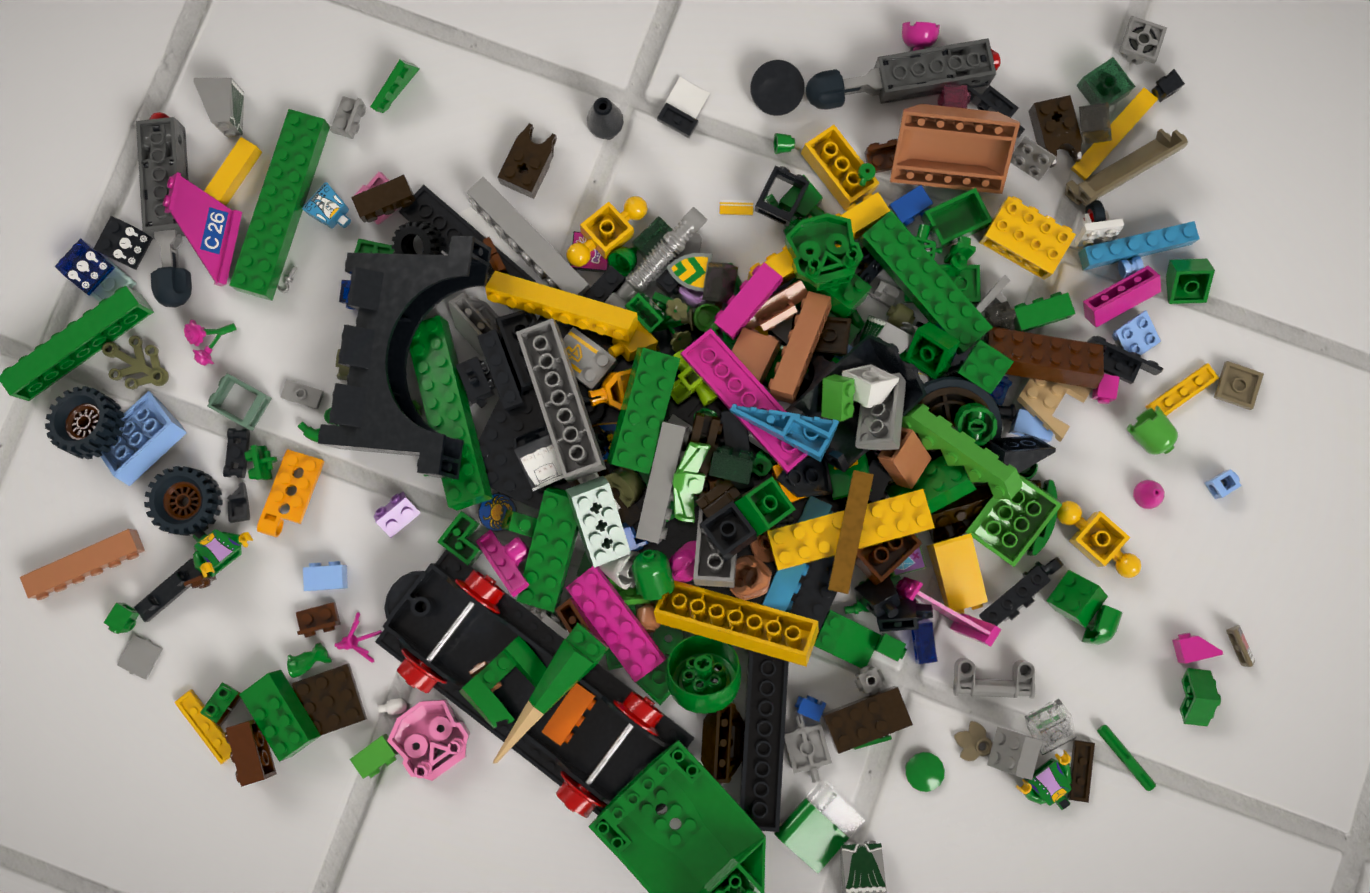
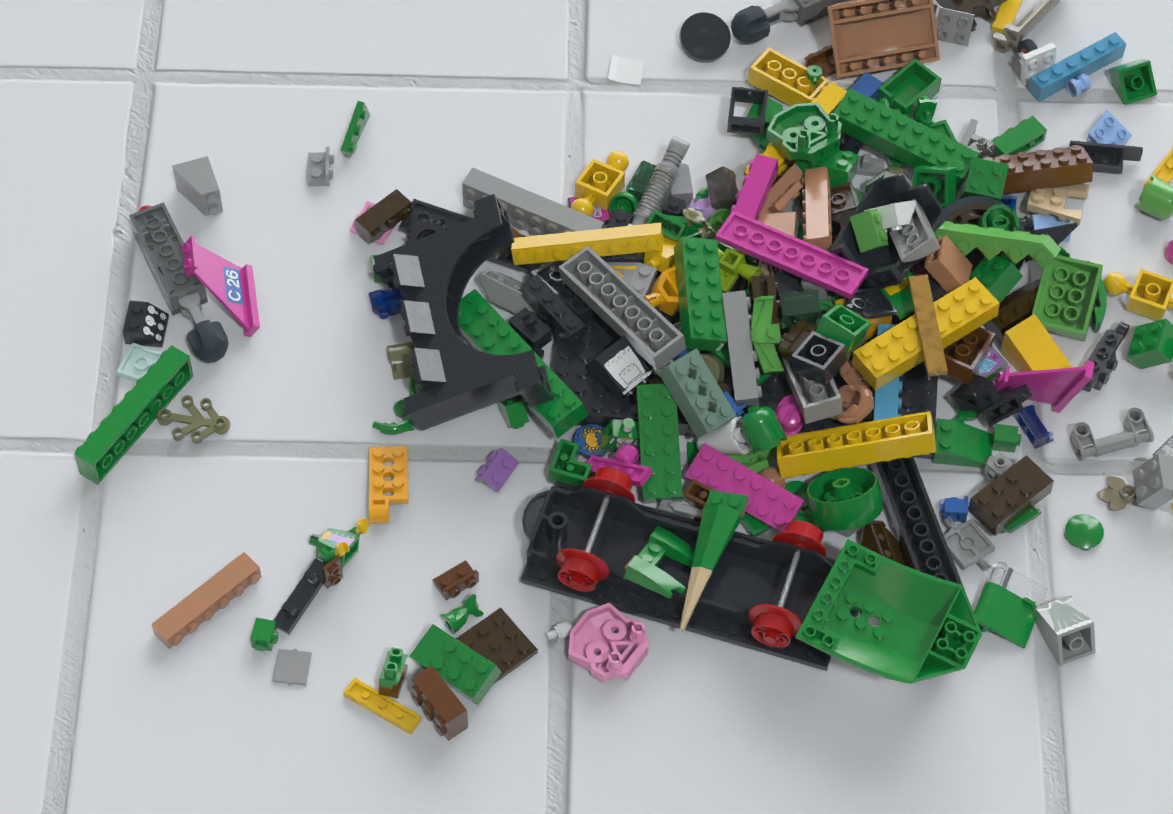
camera: 20 degrees left, 25 degrees down
(84, 266) = (117, 351): clear blue slope -> none
(84, 422) = (168, 475): black wheel -> none
(145, 438) = (222, 479): light blue slope -> none
(164, 492) = (294, 502): black wheel -> none
(195, 334) = (254, 366): dark pink plant -> none
(233, 171) = (231, 233): yellow brick -> none
(235, 453) = (321, 465): black plate -> none
(238, 505) = (340, 509): black slope -> none
(255, 411) = (305, 405): sand green window -> none
(262, 462) = (343, 459): green hips -> none
(280, 205) = (285, 253): green brick -> none
(288, 278) = (314, 310): light grey hand -> none
(302, 394) = (365, 400): light grey plate -> none
(325, 577) = (450, 540): light blue brick -> none
(327, 208) = (330, 242): torso -> none
(351, 640) = (496, 587): dark pink plant -> none
(374, 756) = (560, 676): bright green brick -> none
(529, 157) = (504, 154): dark brown brick -> none
(569, 714) = (733, 576): orange brick -> none
(604, 119) = (559, 100): black cone -> none
(677, 120) = (625, 87): black plate -> none
(691, 270) = (691, 188): shield -> none
(736, 207) = (707, 140): yellow sticker -> none
(783, 143) = (728, 78): green hat -> none
(801, 432) = (854, 259): dark azure wedge -> none
(1027, 237) = (977, 85): yellow brick -> none
(1106, 390) = (1101, 182): dark pink brick -> none
(1122, 296) = (1081, 107): dark pink brick -> none

